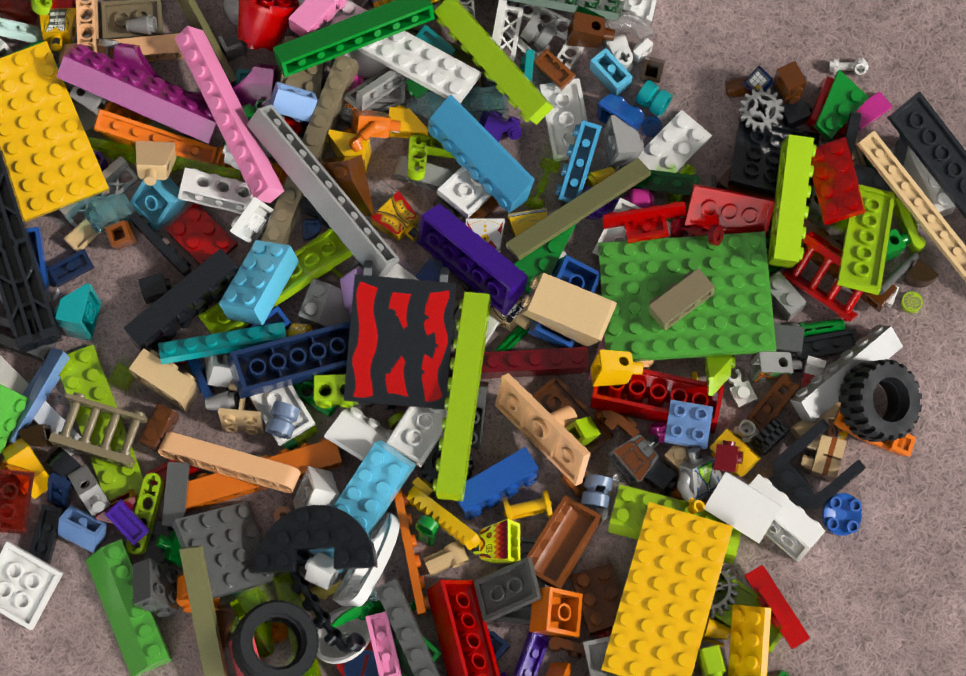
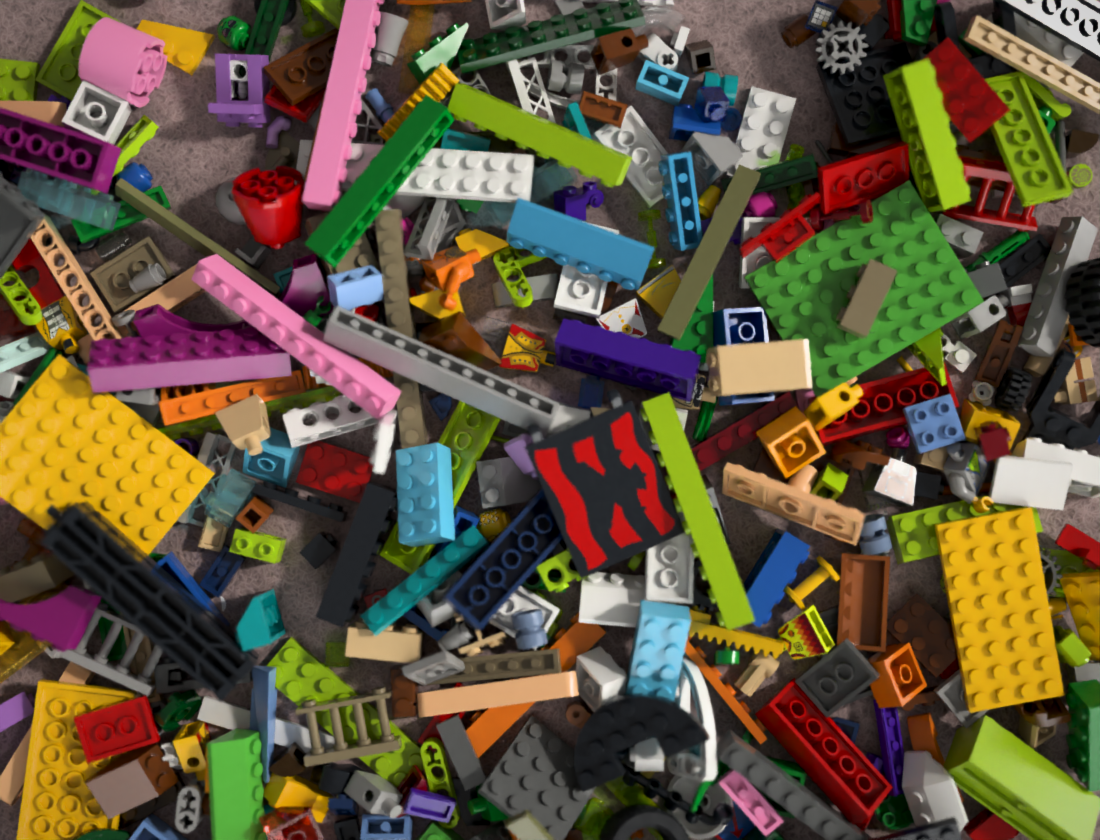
camera: 30 degrees left, 15 degrees up
(109, 260) = (258, 545): none -> lime brick
(191, 414) = (433, 668): none -> light grey plate
(236, 440) = (507, 666): none -> dark tan plate
(566, 383) = (791, 442): none -> light orange brick
(638, 102) = (711, 104): none -> clear blue brick

